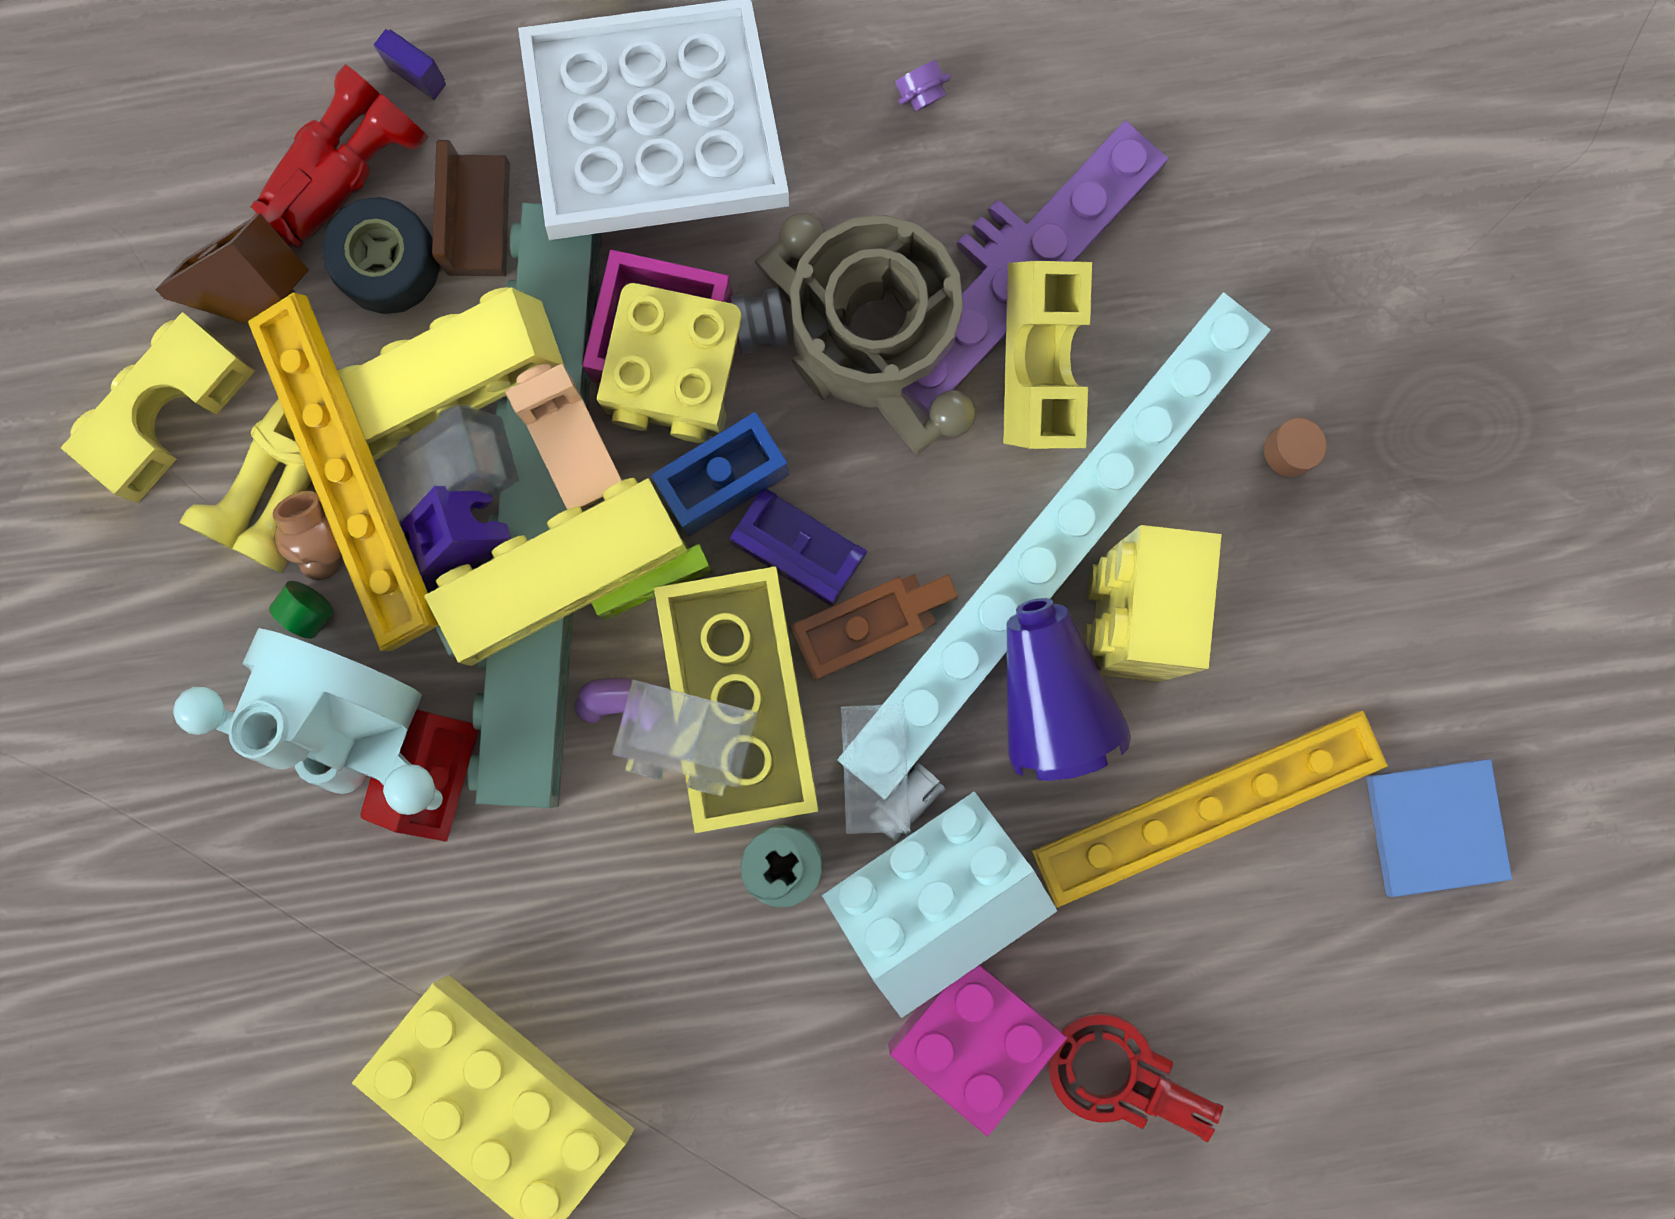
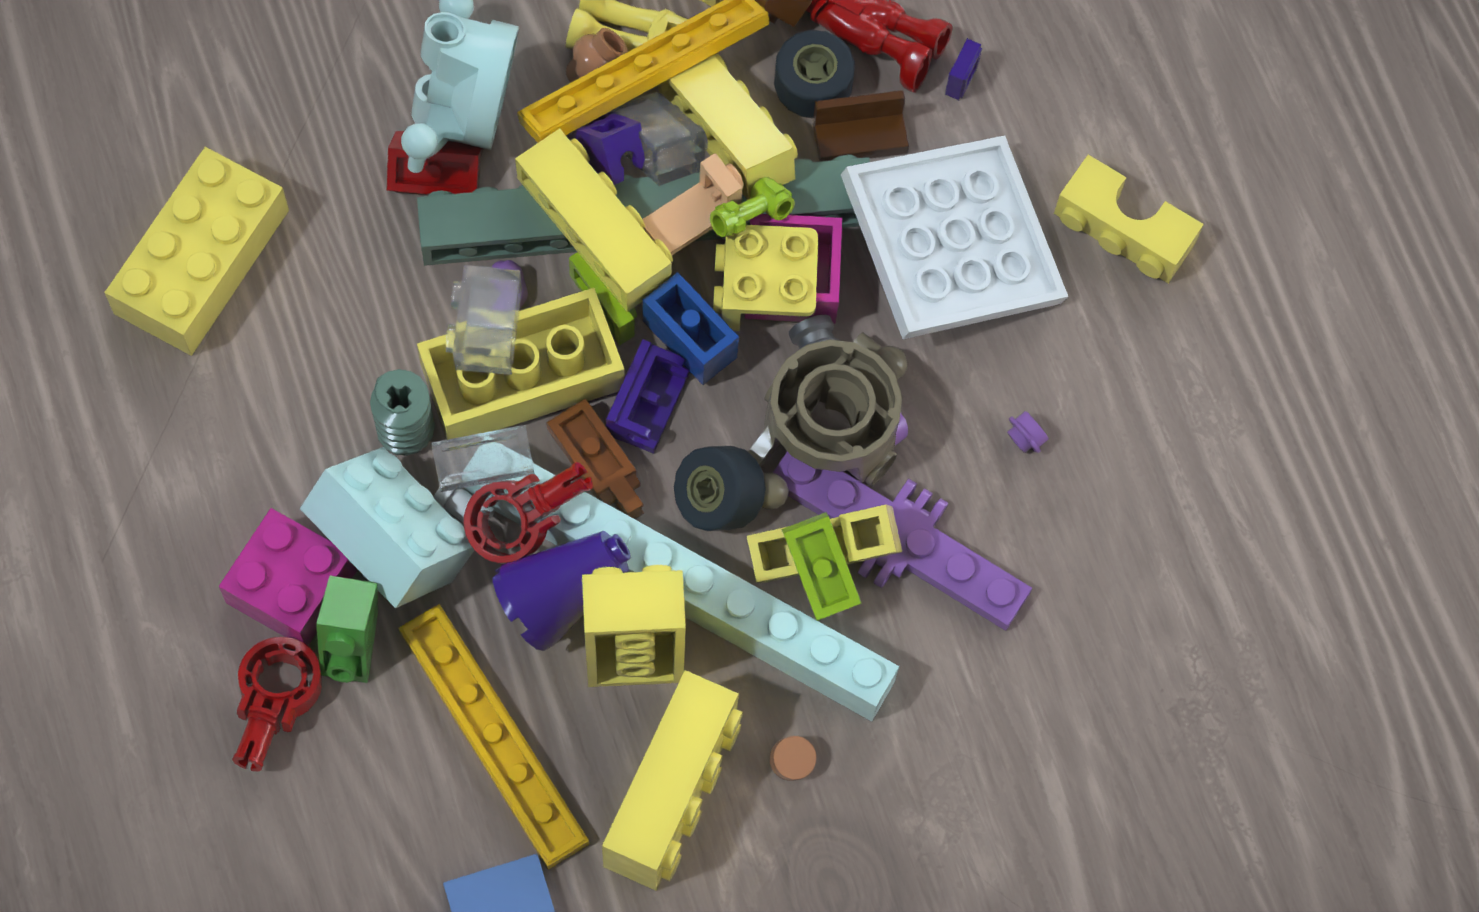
camera: 75 degrees right, 15 degrees down
(300, 609) = (542, 65): green piece -> none
(572, 337) = (765, 197): none -> lime bar
(946, 474) = (719, 488): none -> black wheel
(953, 712) = (546, 499): none -> red pin
(1063, 975) = (347, 629): none -> bright green slope
(1090, 359) = (821, 566): none -> lime plate
(1333, 599) = (670, 780): none -> light yellow brick

